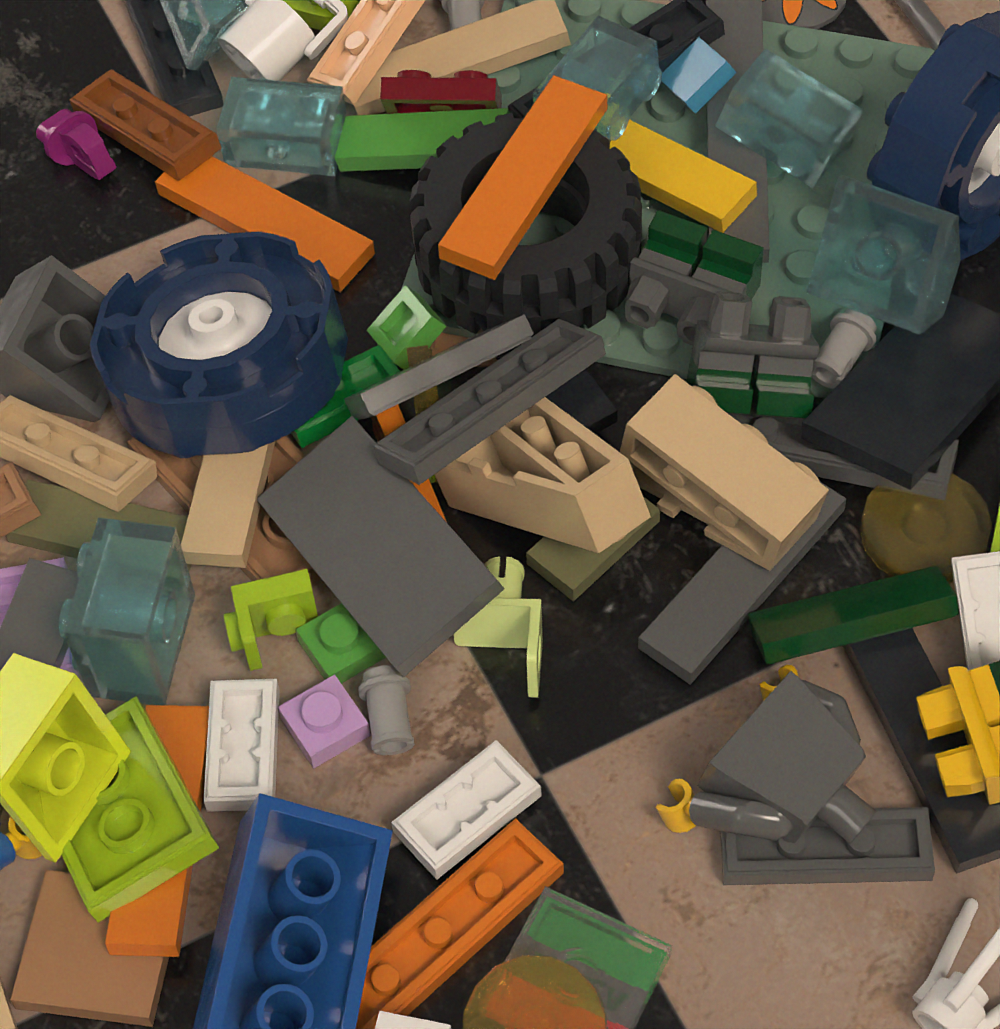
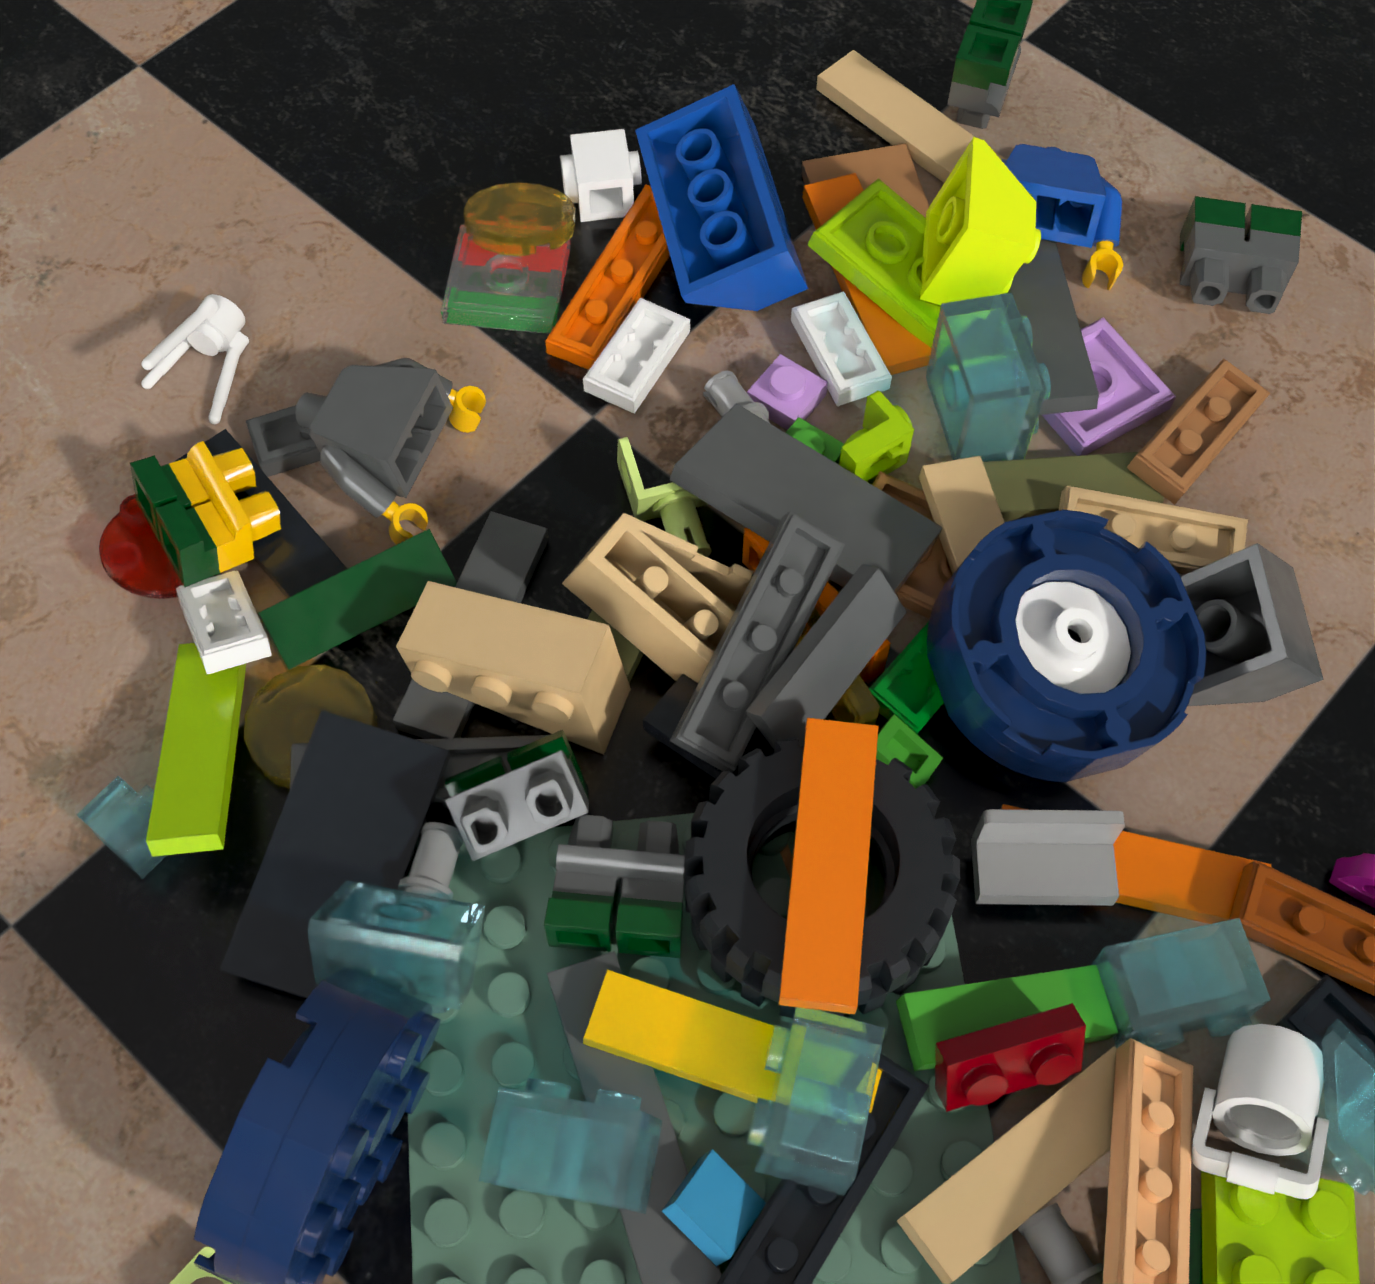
camera: 155 degrees right, 5 degrees up
(333, 216) = (1046, 857): none -> light grey panel

